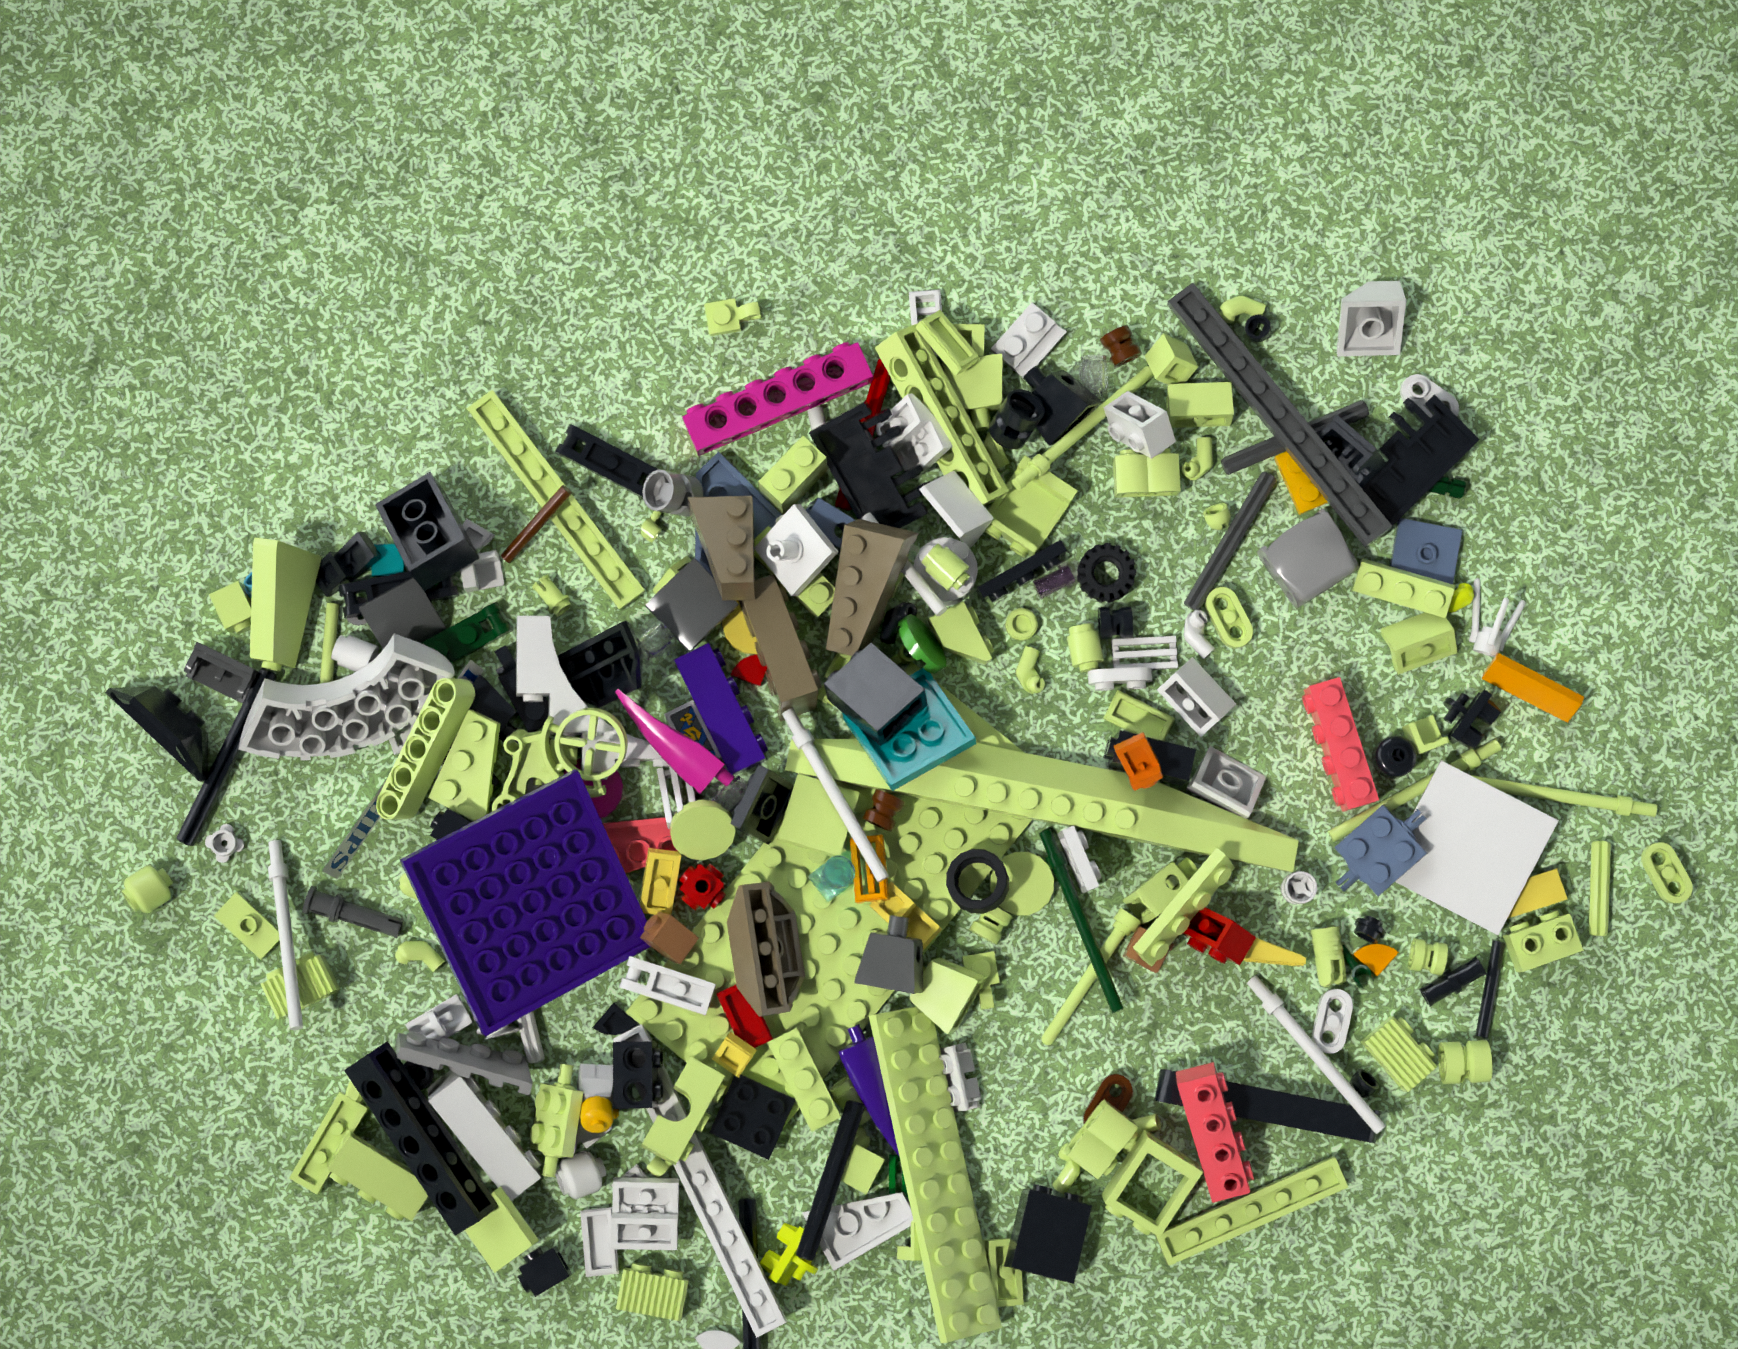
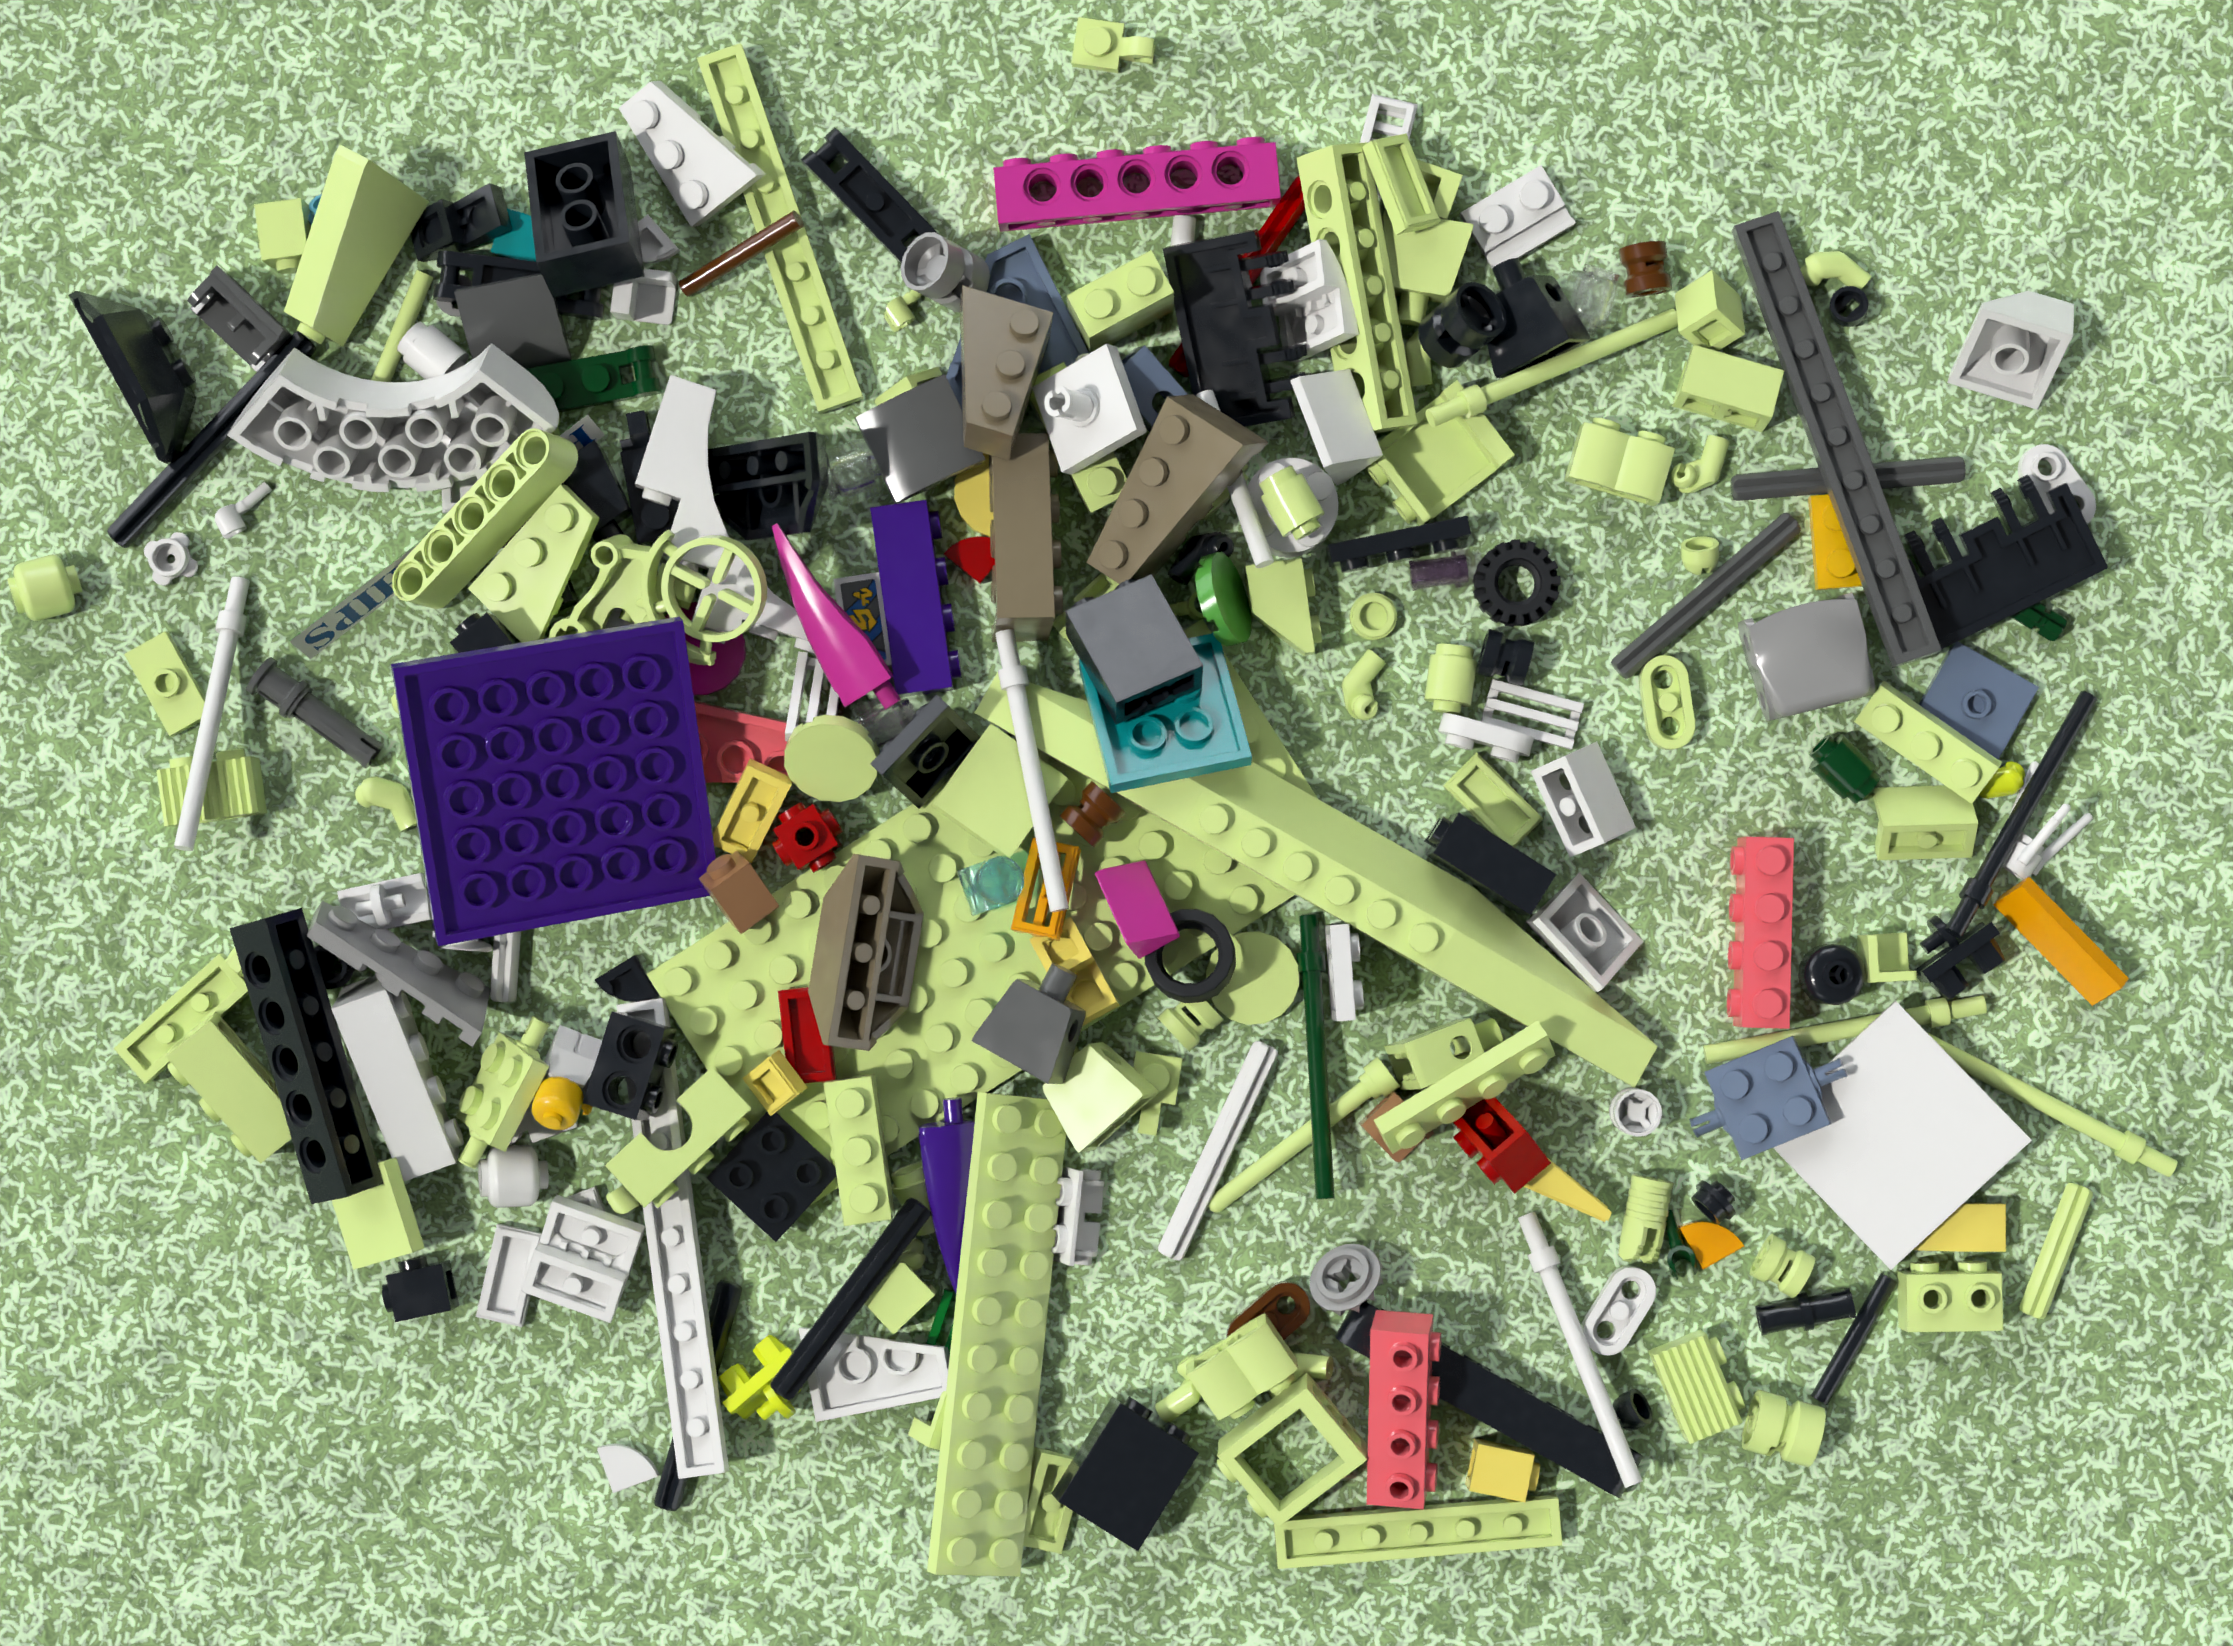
camera: 30 degrees right, 5 degrees up
(254, 804) = (229, 517): none -> white hand
(482, 473) = (689, 157): none -> white wing
(552, 596) = (731, 362): yellowish green pin -> none
(653, 1292) = (559, 1368): yellowish green brick -> none
(669, 986) = (716, 959): white plate -> none
(933, 860) = (1137, 907): none -> dark pink slope
(1037, 1004) = (1218, 1150): none -> white axle
(1139, 424) = (1633, 389): white brick -> none
(1139, 761) = (1469, 866): orange bracket -> none
(1140, 1054) = (1336, 1267): none -> light grey gear
(1194, 633) = (1611, 708): white arm -> none
(1292, 1151) = (1502, 1470): none -> light yellow brick
(1352, 451) = (1922, 525): black hinge -> none
(1356, 622) = (1844, 768): none -> dark green brick
(1468, 671) = (1978, 890): none -> black bar
(1668, 871) = (2162, 1258): yellowish green plate -> none

